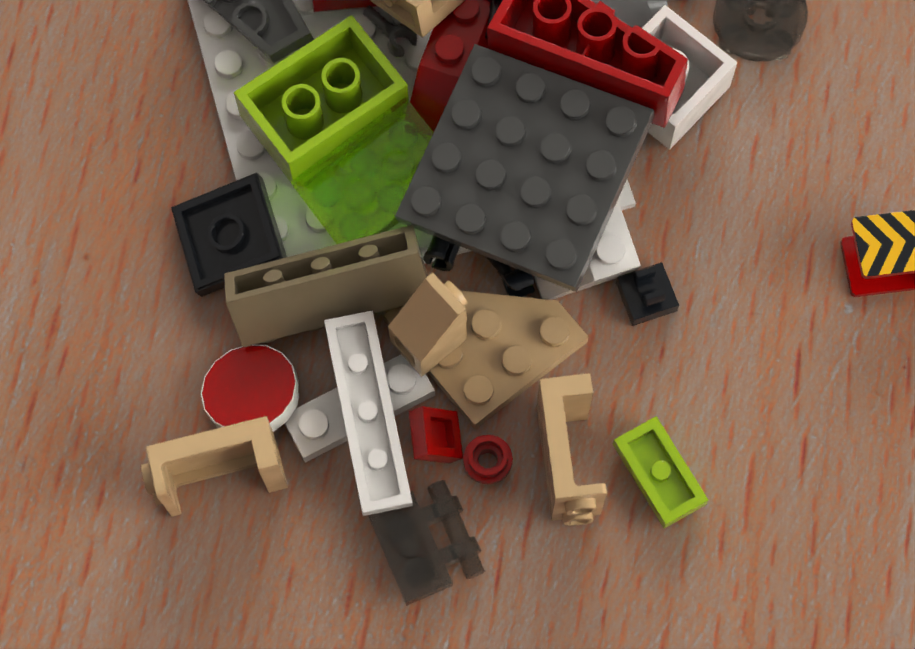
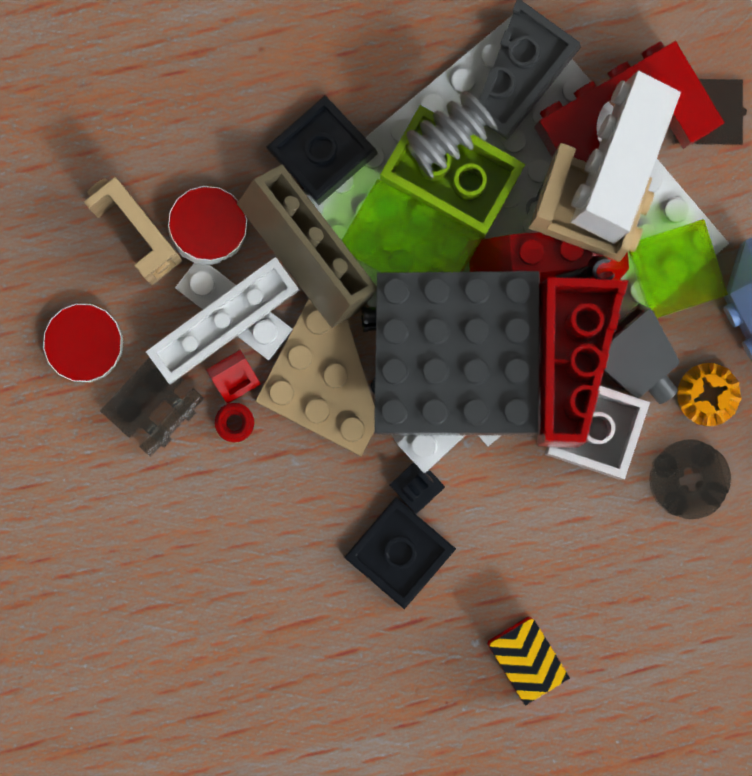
camera: 65 degrees right, 15 degrees up
(281, 64) = (449, 132): none -> light grey piece
(316, 592) = (83, 343): none -> red tile
(430, 324) = (304, 337): tan slope -> none
(560, 402) = (221, 490): tan panel -> none
(660, 472) = (279, 553): lime plate -> none
(714, 344) = (400, 553): none -> black tile

